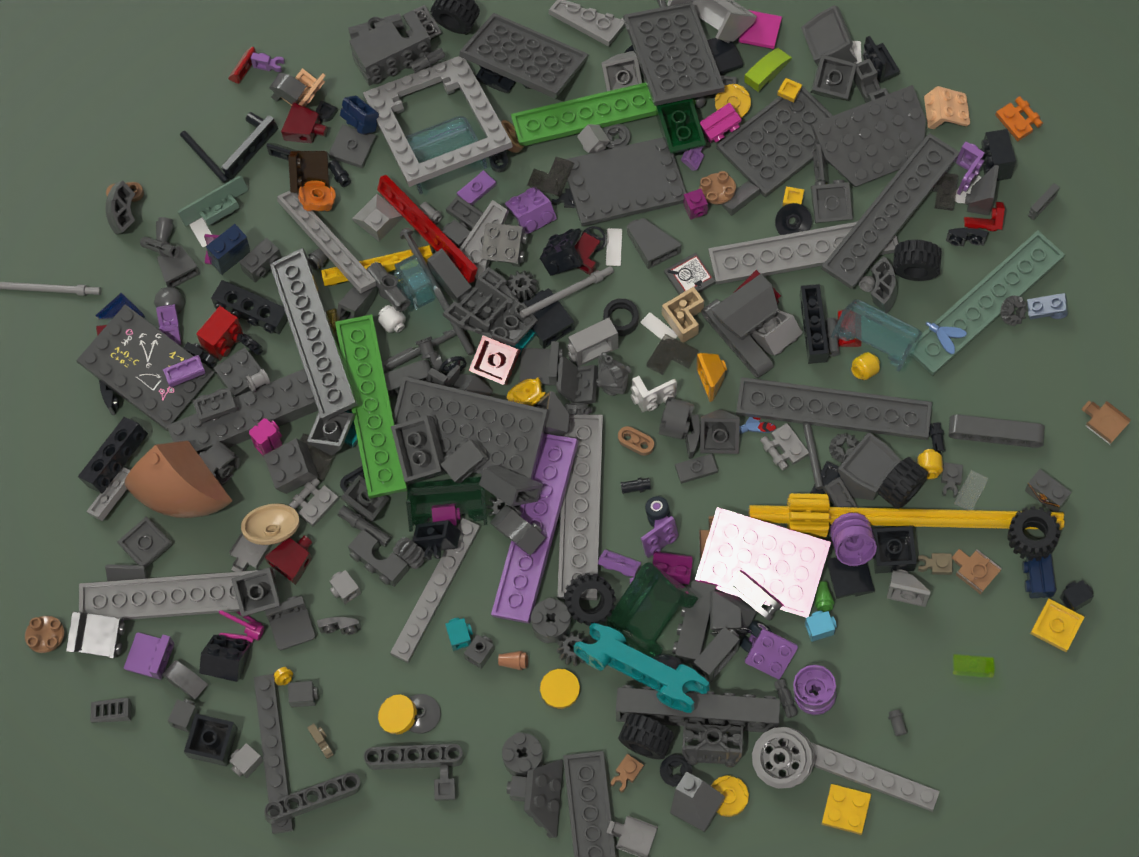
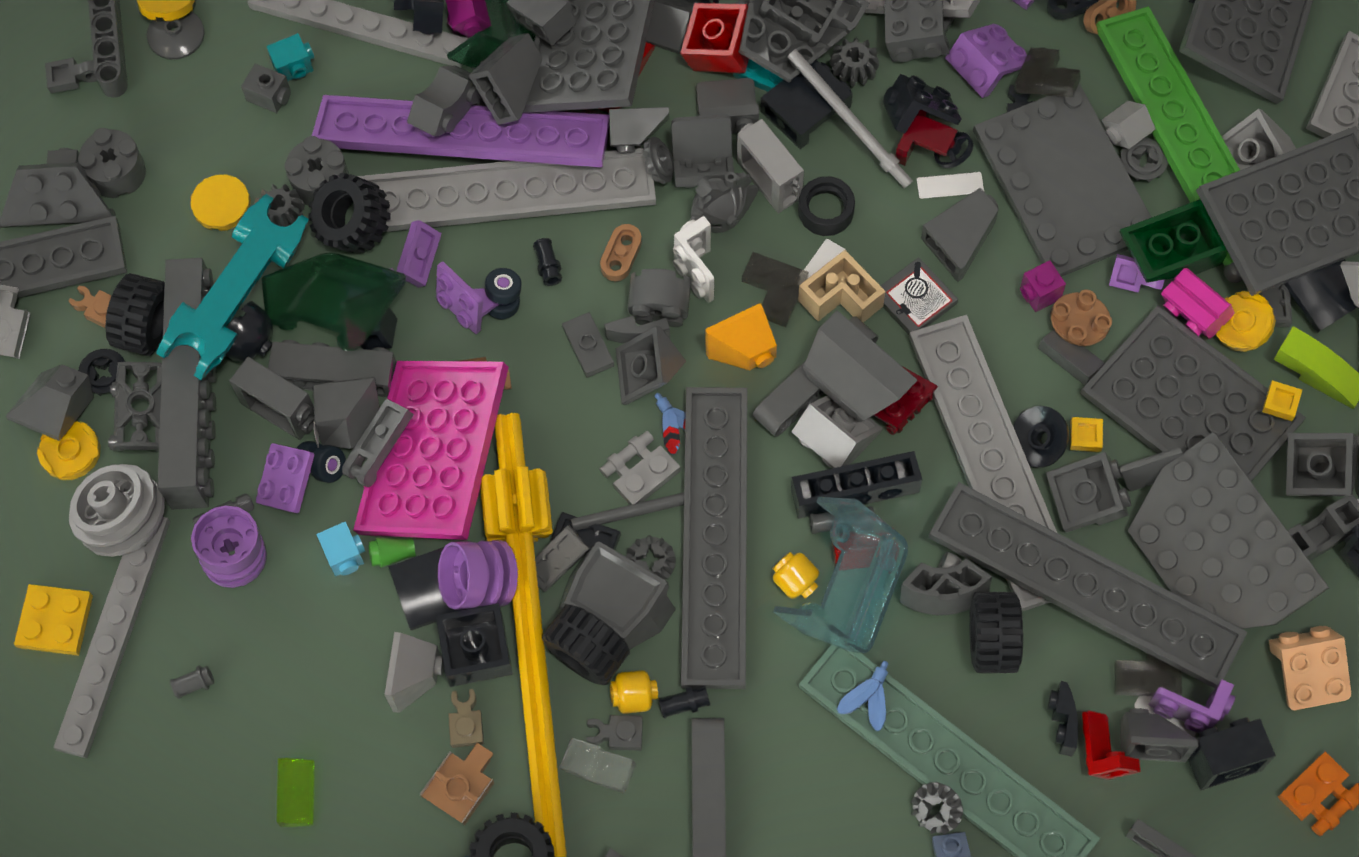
camera: 80 degrees right, 0 degrees up
(514, 660) = (257, 136): nougat cone -> none
(526, 392) = (677, 91): yellow hat -> none
(675, 565) = (413, 325): magenta bracket -> none

